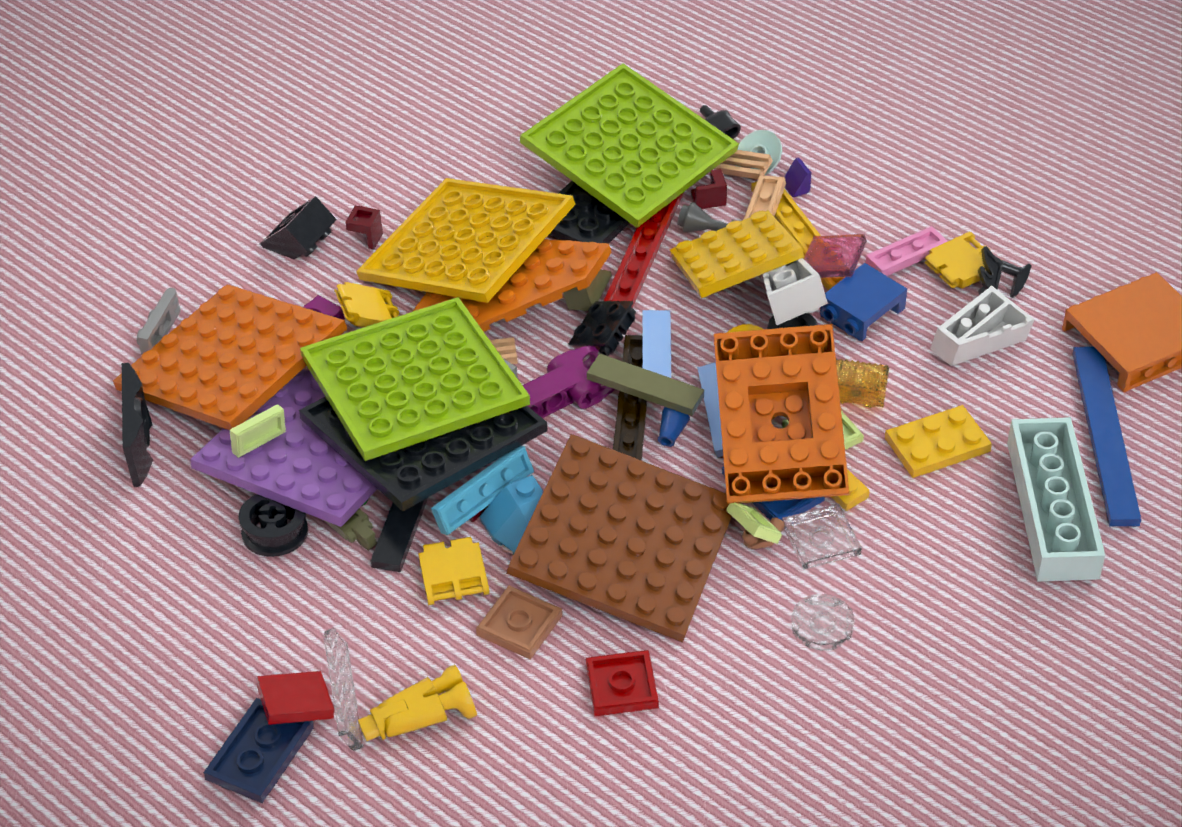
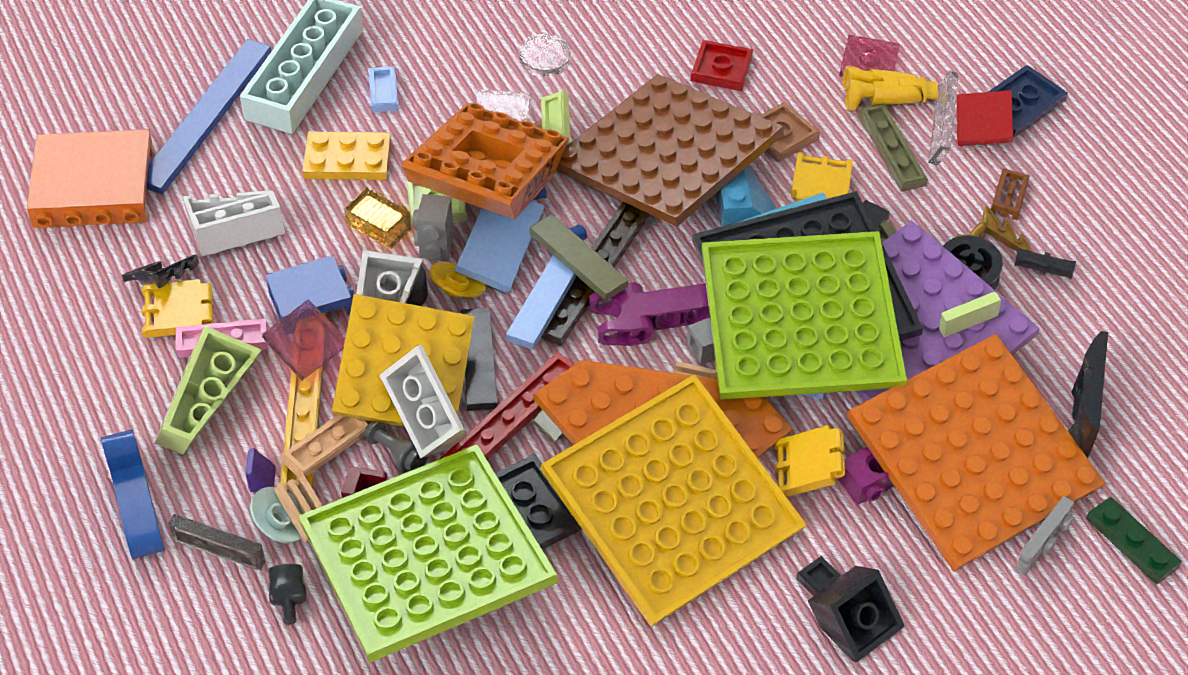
camera: 160 degrees left, 5 degrees up
(84, 352) = (1133, 540): none -> dark green plate
(196, 559) = (1045, 263): none -> black pin
(248, 653) = (1006, 208): none -> dark orange tile
(261, 589) = (991, 225): none -> pearl gold piece
(334, 251) = (817, 575): none -> black tile
(366, 221) = (776, 579): dark red panel -> none
(389, 643) = (892, 147): none -> olive tile
(454, 754) = (869, 53): none -> clear pink tile
(604, 325) = (577, 341): black hinge -> none
(686, 309) = (480, 366): none -> tile
(690, 214) = (423, 403): none -> white slope
(795, 128) = (217, 542): none -> clear smoke tile
(882, 207) = (207, 381): none -> yellowish green wedge
(884, 142) = (132, 494): none -> blue beam
(960, 522) = (383, 89): none -> light blue tile

